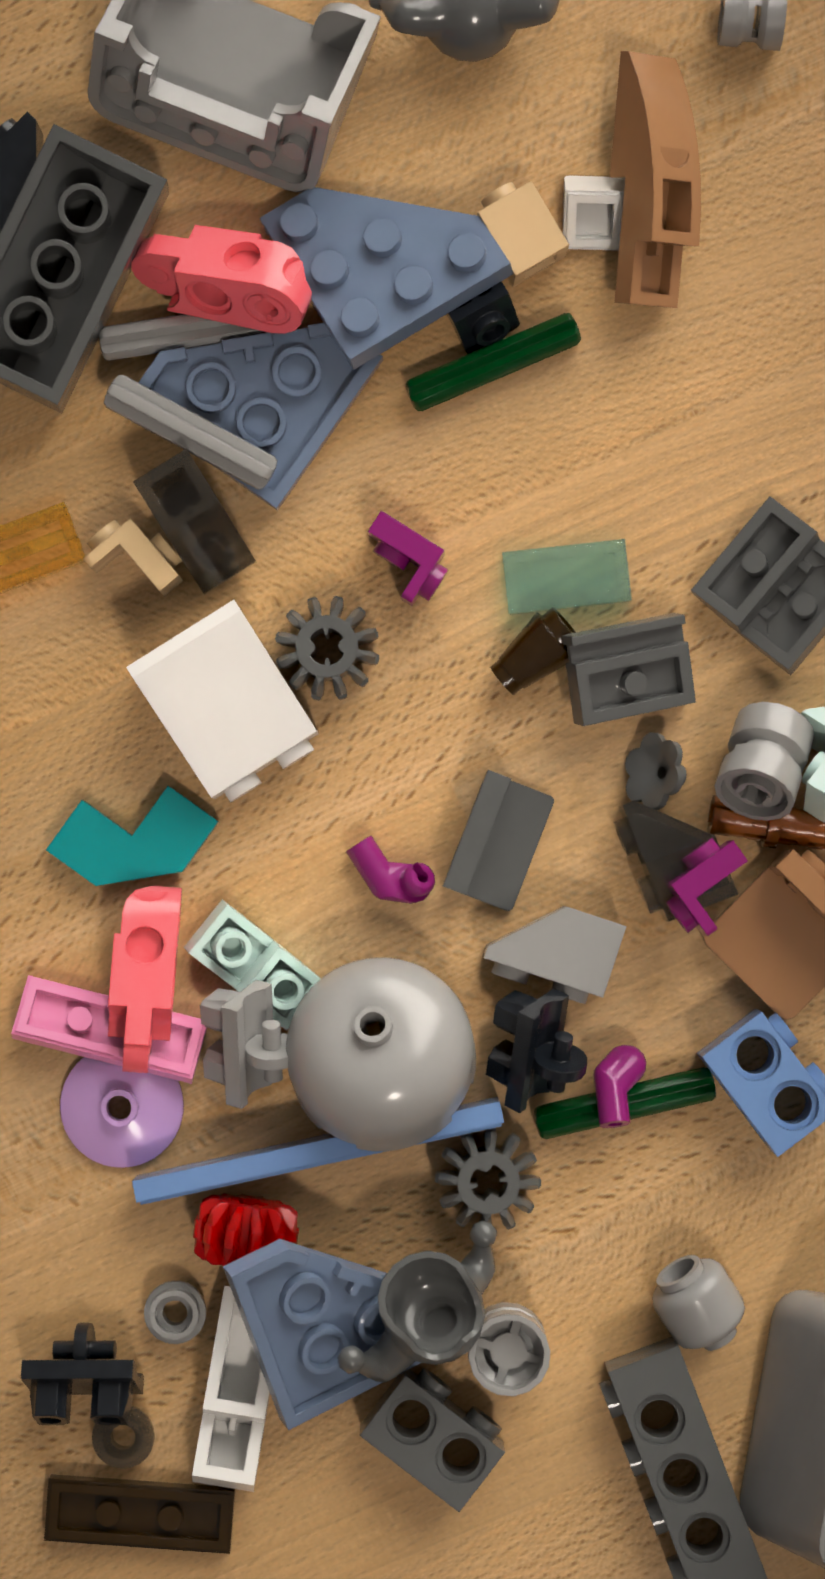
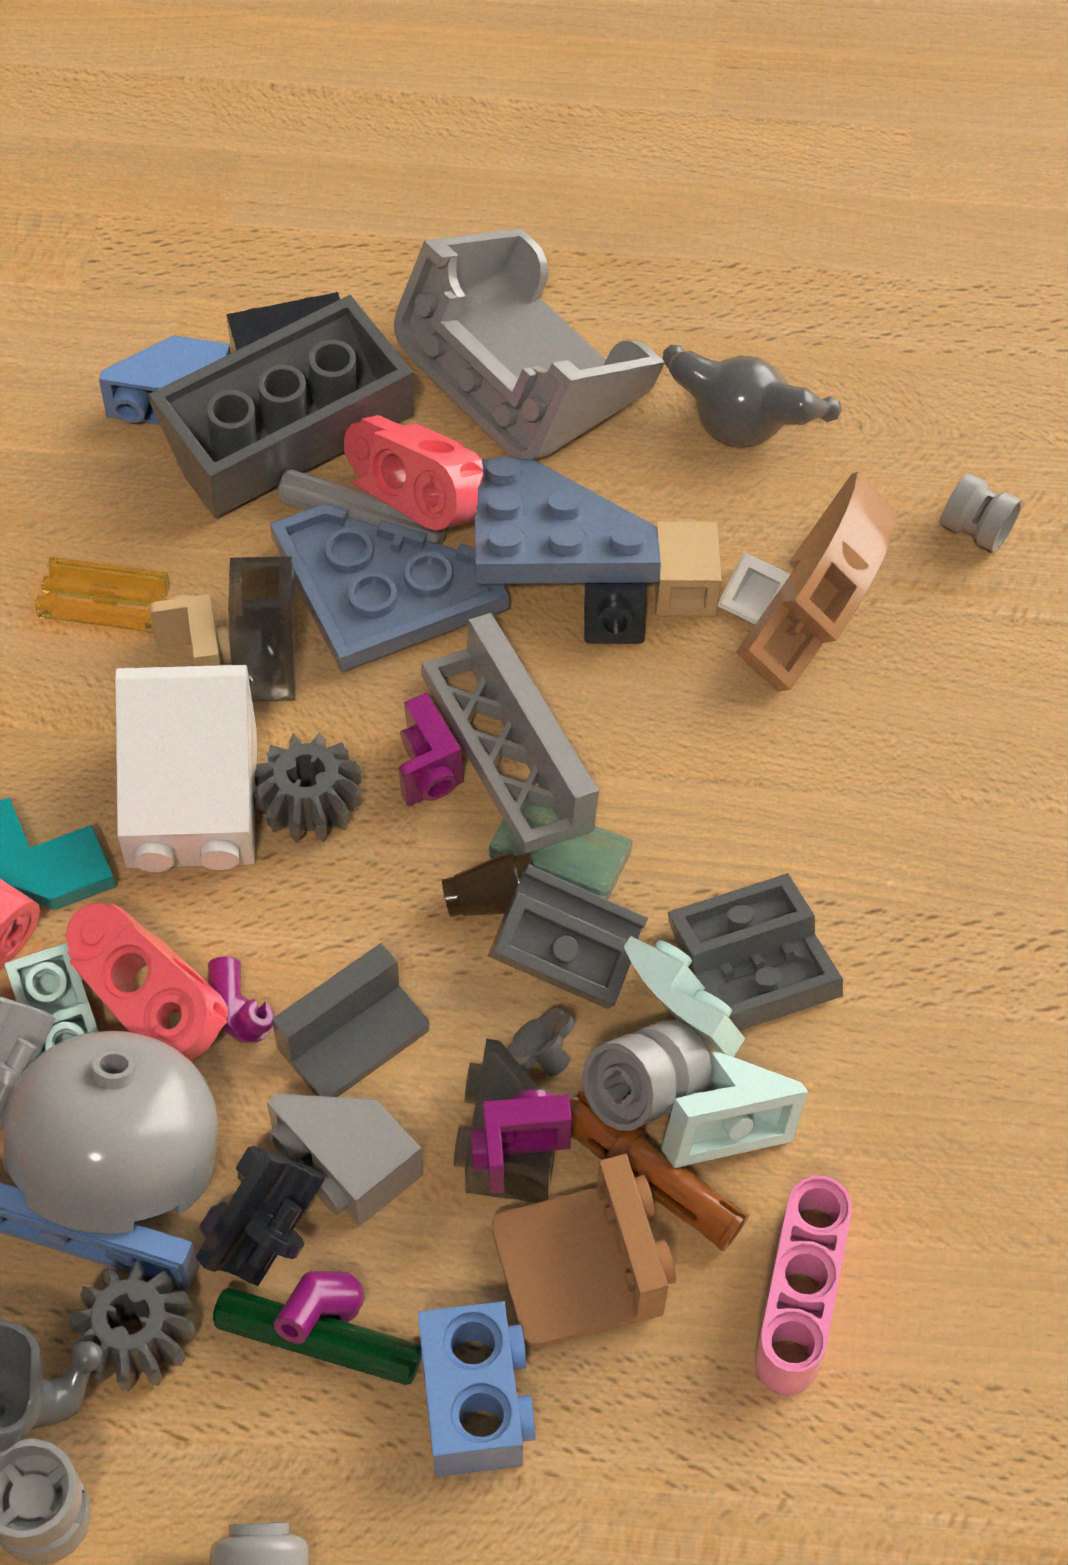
camera: 30 degrees right, 30 degrees down
(190, 432) = (309, 562): light grey axle -> none
(265, 892) = (108, 953): none -> coral piece
(480, 483) = (531, 726): none -> light grey fence
(493, 362) = (603, 653): dark green axle -> none
(734, 665) = (670, 979): none -> light aqua slope

